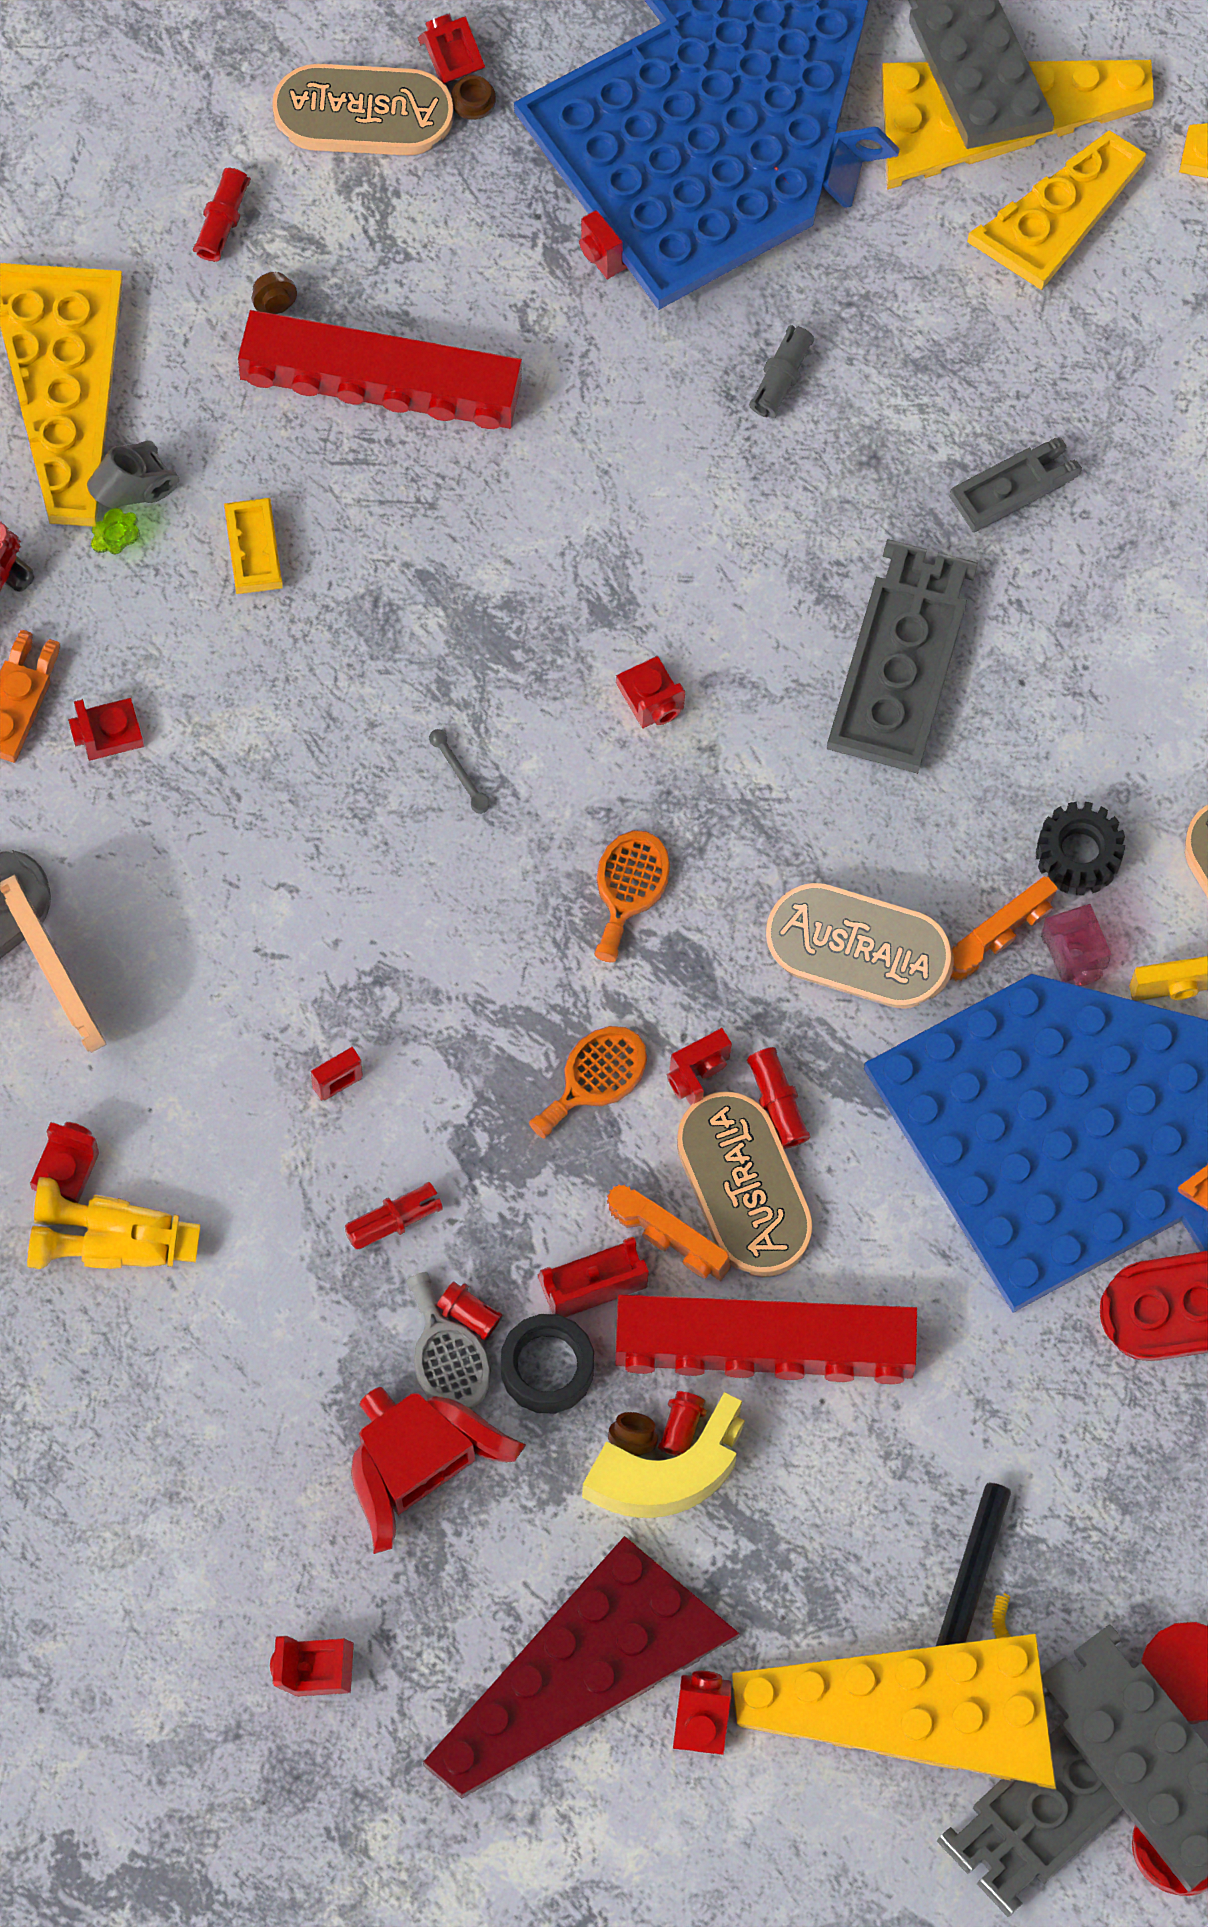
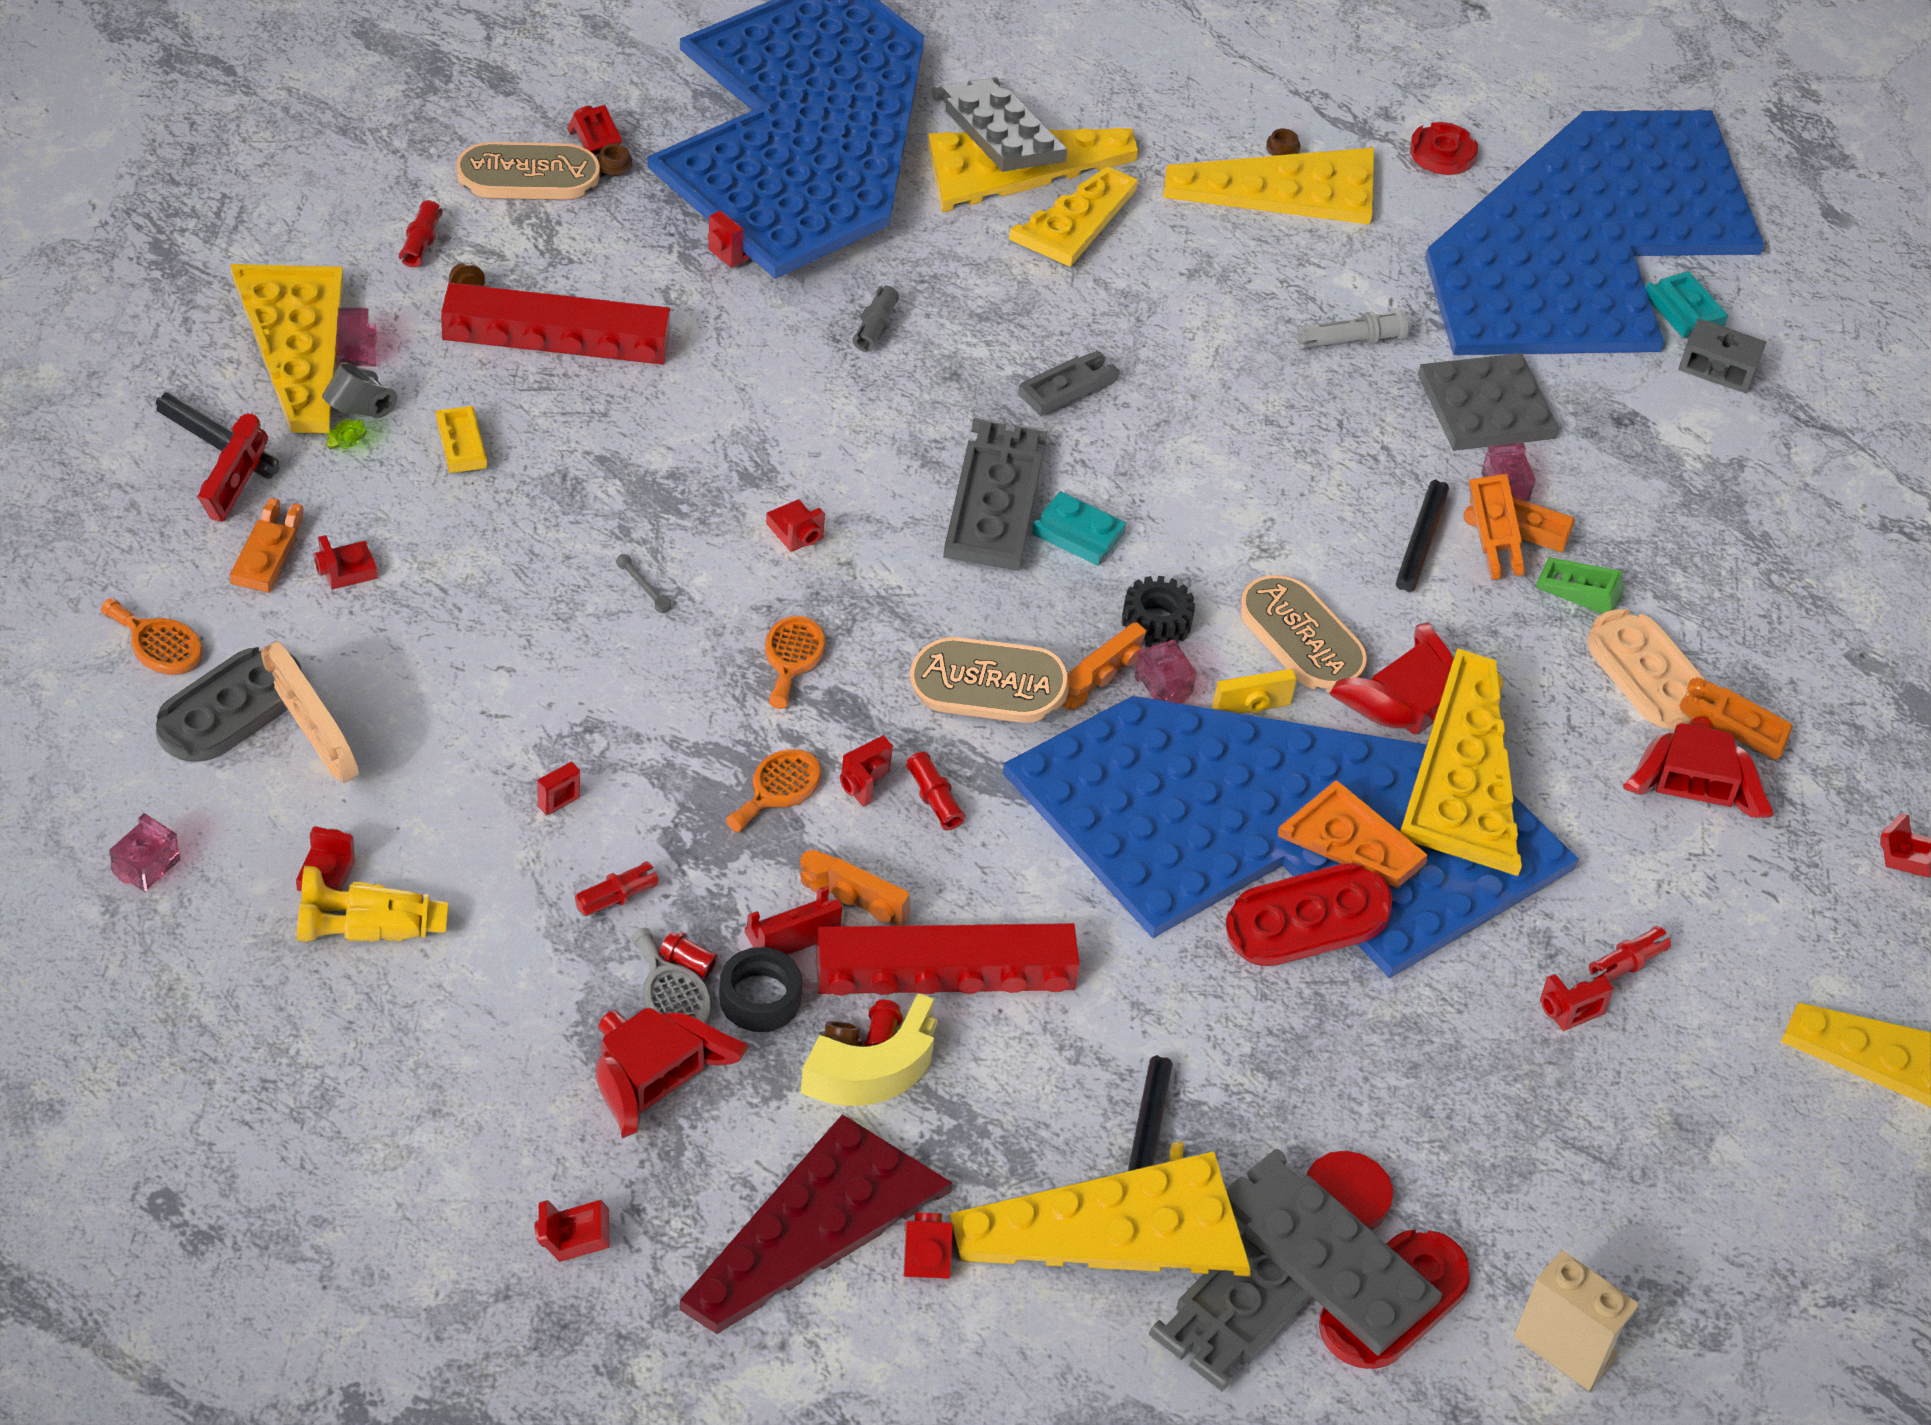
camera: 10 degrees left, 20 degrees down
(133, 383) = (356, 337): none -> clear pink brick
(744, 1183) = (915, 853): dark tan tile -> none
(847, 159) = (911, 188): blue bracket -> none
(1000, 711) = (1079, 528): none -> teal plate

